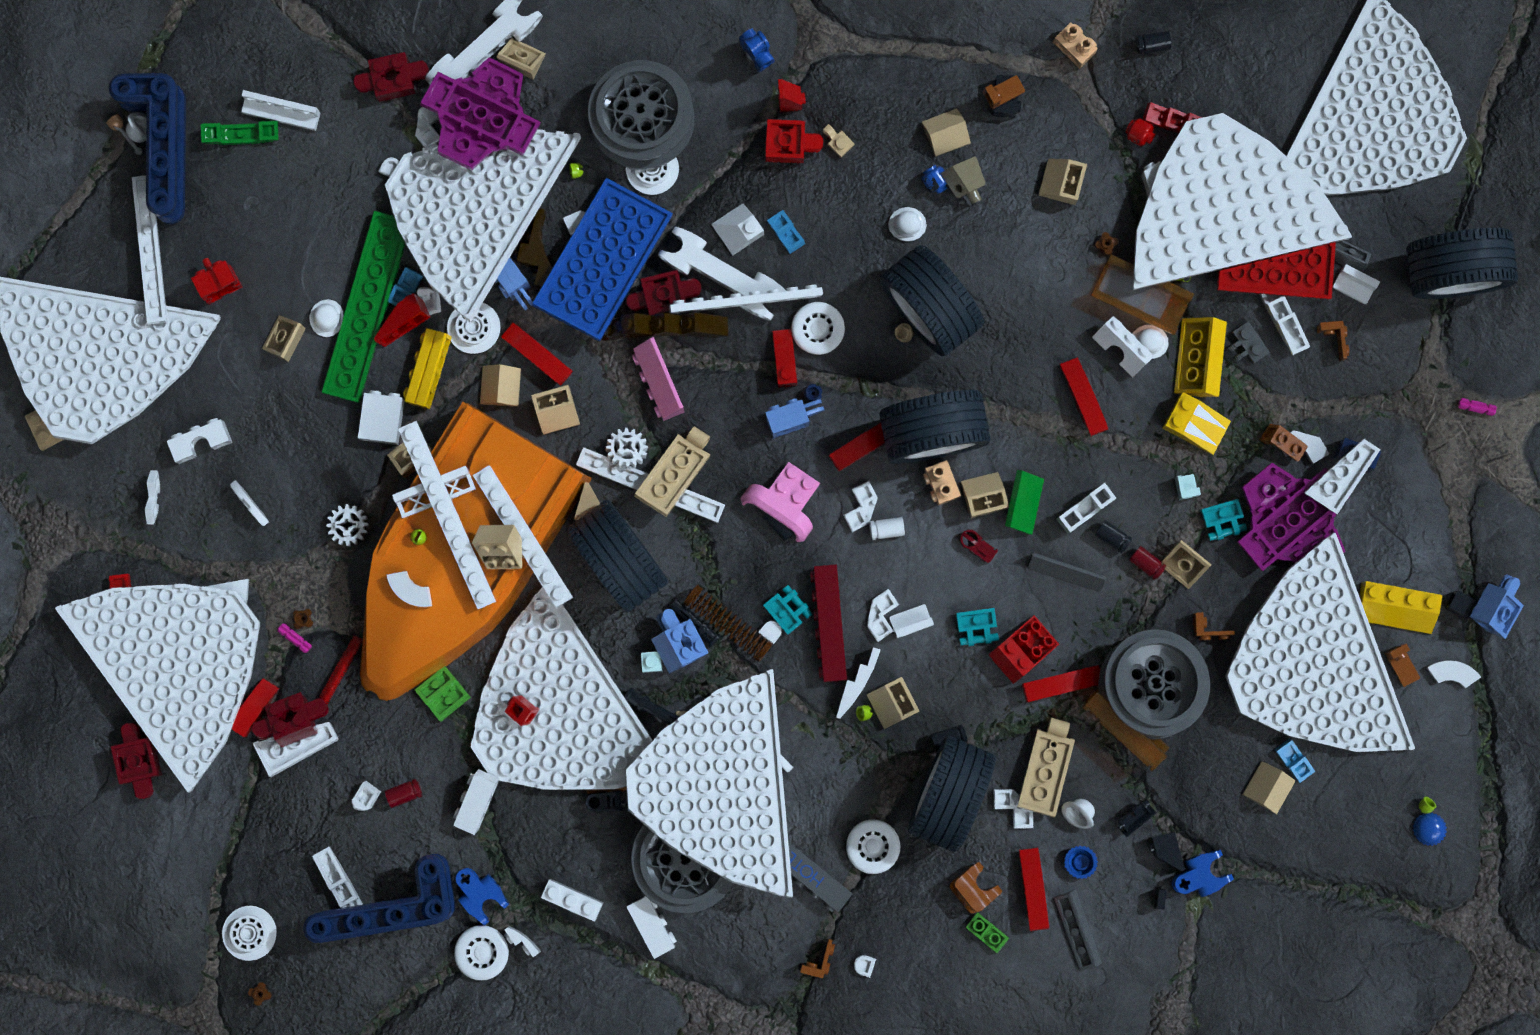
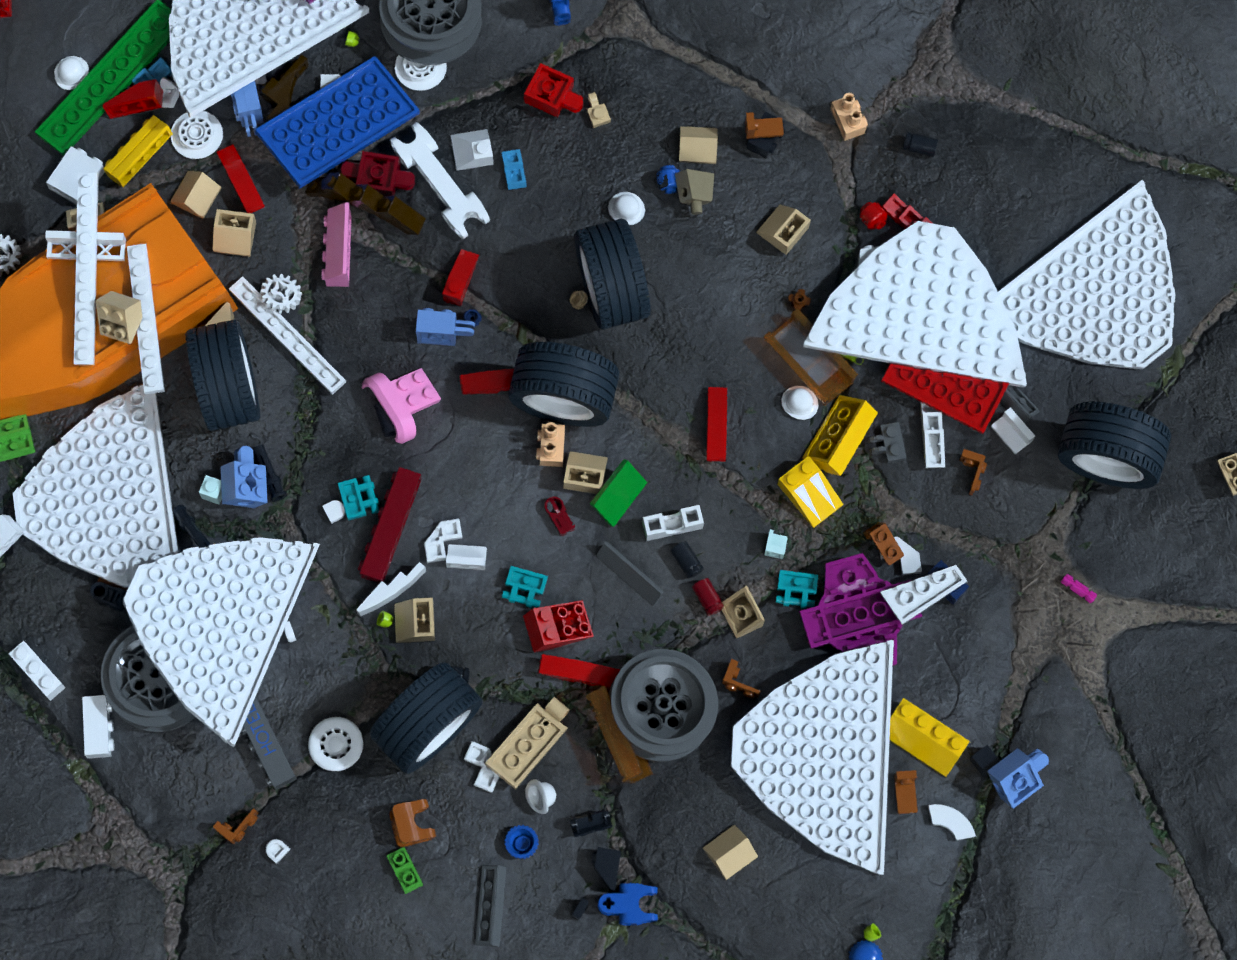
camera: 20 degrees right, 10 degrees down
(284, 338) = (26, 73): tan slope -> none
(408, 590) = (20, 323): white tile -> none
(422, 538) = (55, 282): lime hinge -> none
(515, 711) = (73, 478): red brick -> none
(674, 472) = (313, 331): tan hinge -> none
(693, 596) = (315, 524): reddish brown piece -> none
(736, 300) = (454, 209): white plate -> none
(790, 96) = (569, 52): red slope -> none
(818, 328) = (503, 263): white wheel -> none
(862, 515) = (467, 443): white tile -> none
(887, 528) = (482, 463): white piece -> none
(1034, 889) = (466, 848): red slope -> none
(1135, 354) = (780, 406): white arch -> none
(1294, 760) = (765, 837): dark azure slope -> none

